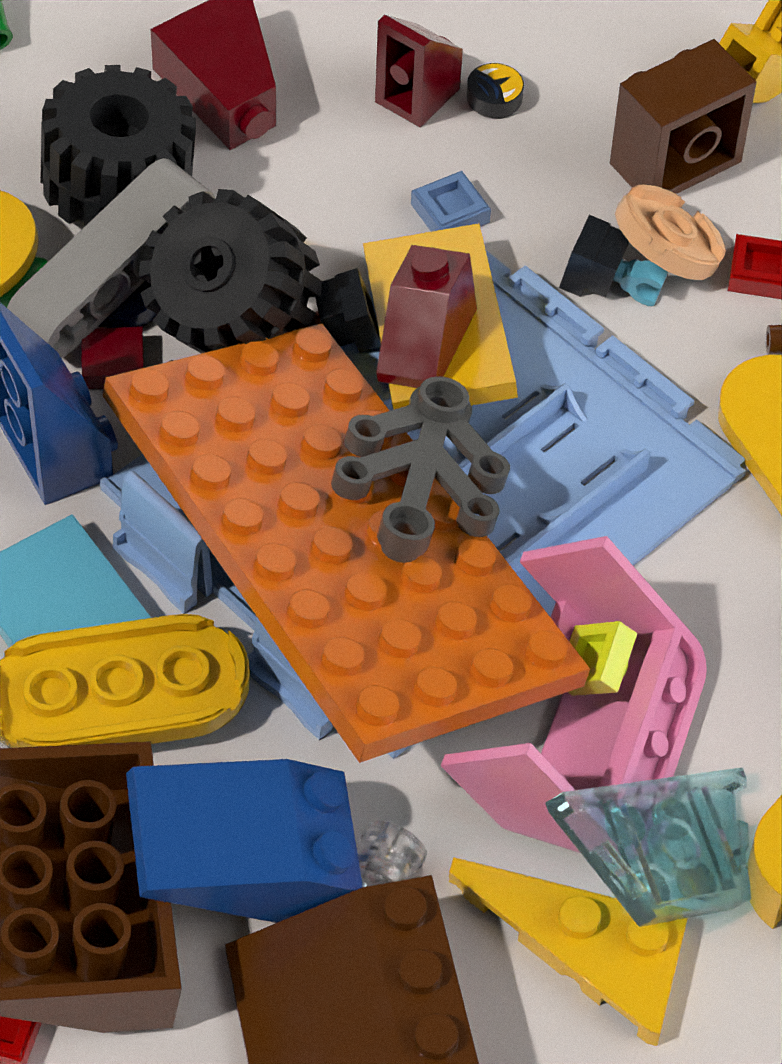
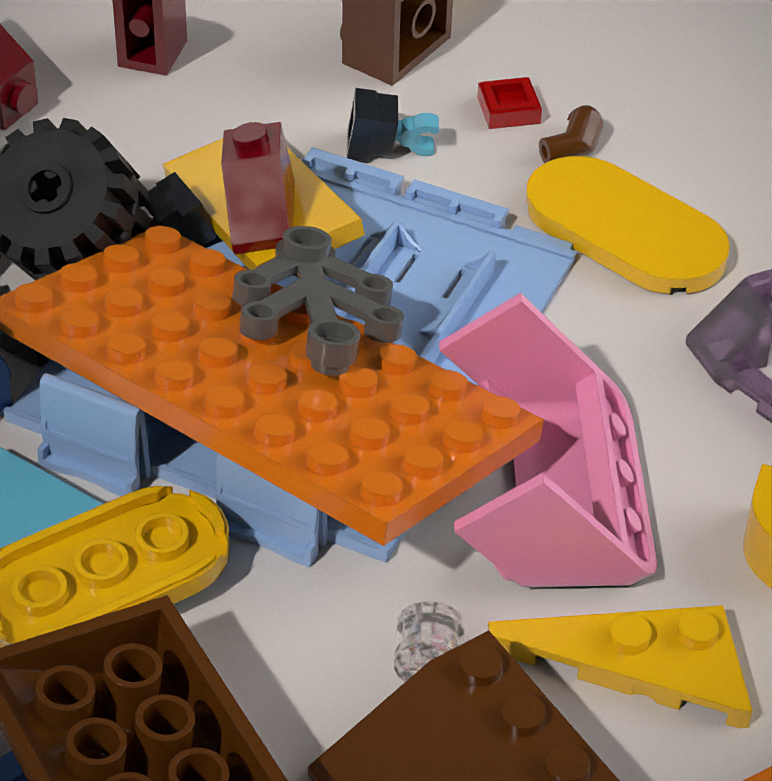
camera: 20 degrees left, 10 degrees down
(243, 836) = (295, 651): blue slope -> none
(450, 203) = (219, 115): medium blue tile -> none
(495, 90) = (220, 31): black tile -> none
(606, 652) = (550, 401): neon yellow plate -> none
(663, 842) = (677, 544): clear light blue wing -> none
(668, 234) = (429, 92): light nougat tile -> none

